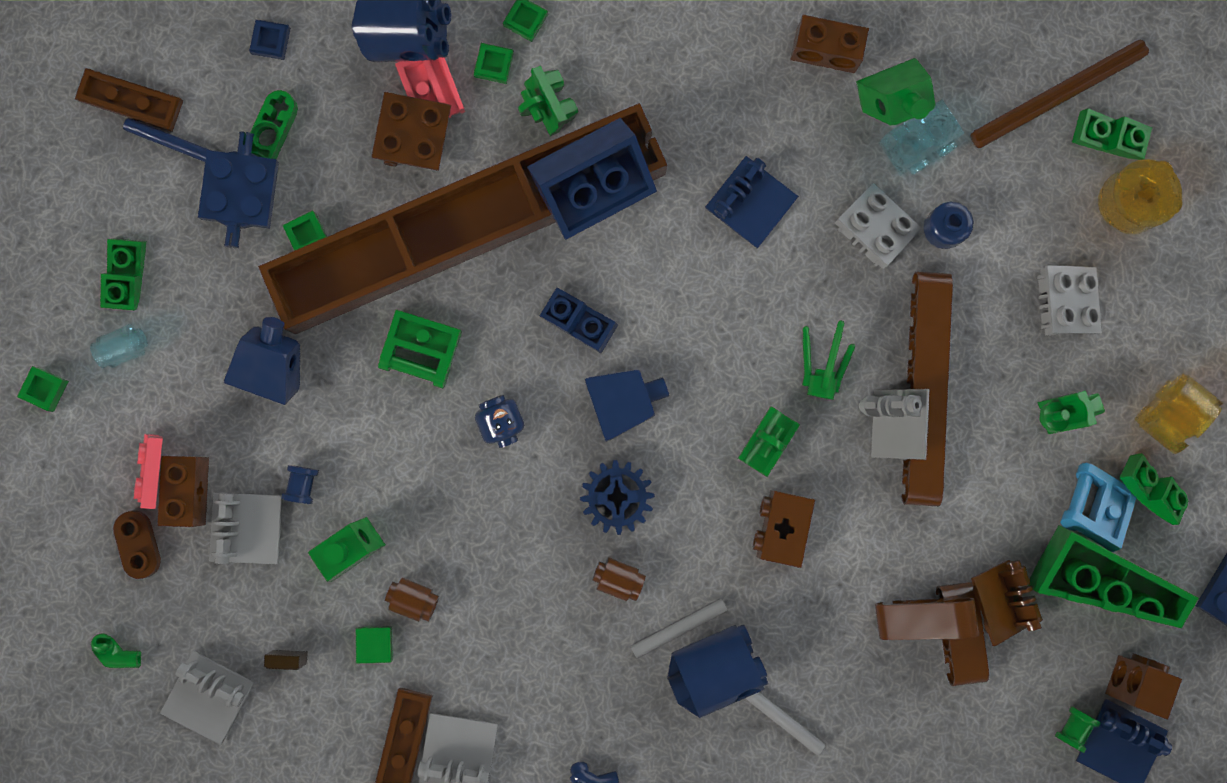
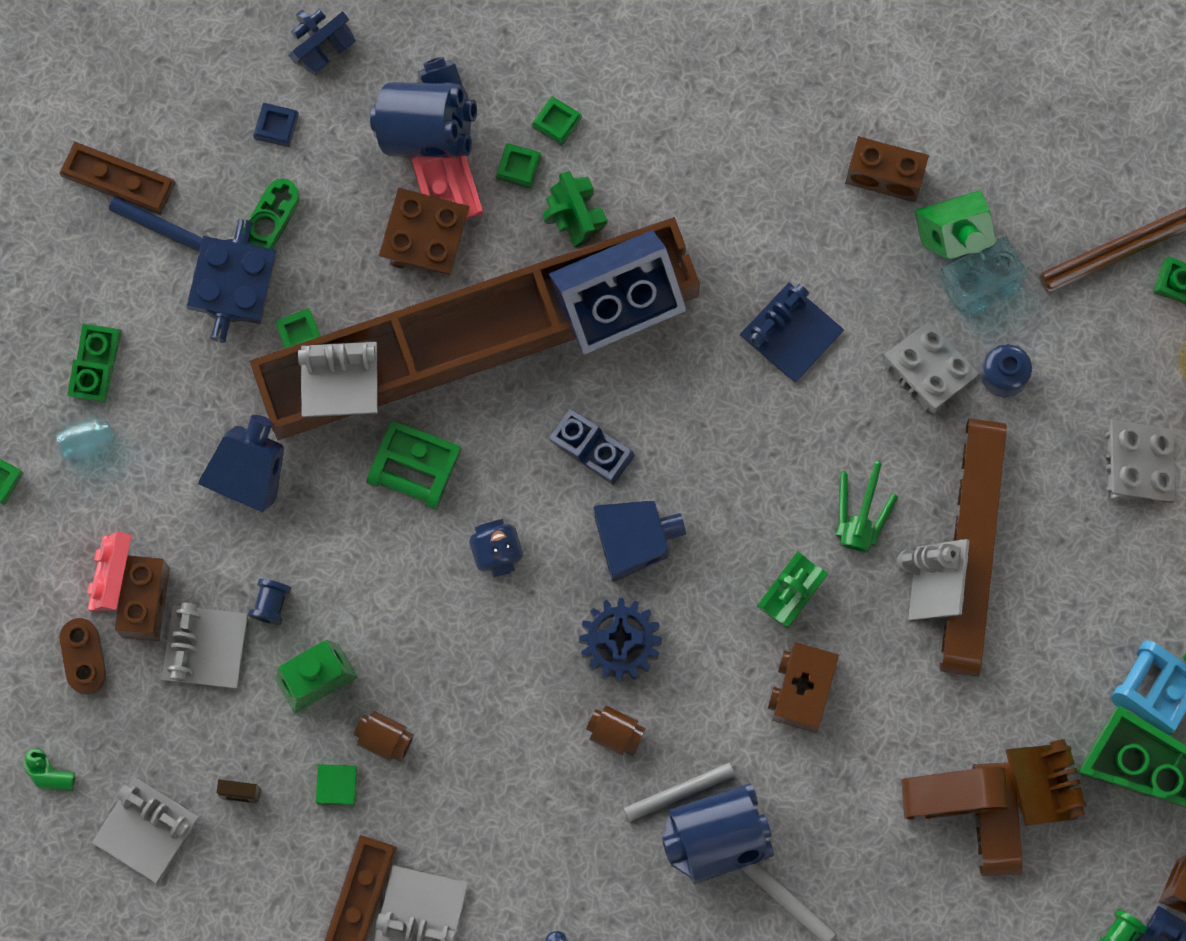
camera: 10 degrees right, 10 degrees down
(341, 279) = (339, 379): none -> light grey hinge
(1070, 411) = (1127, 579): green hips -> none

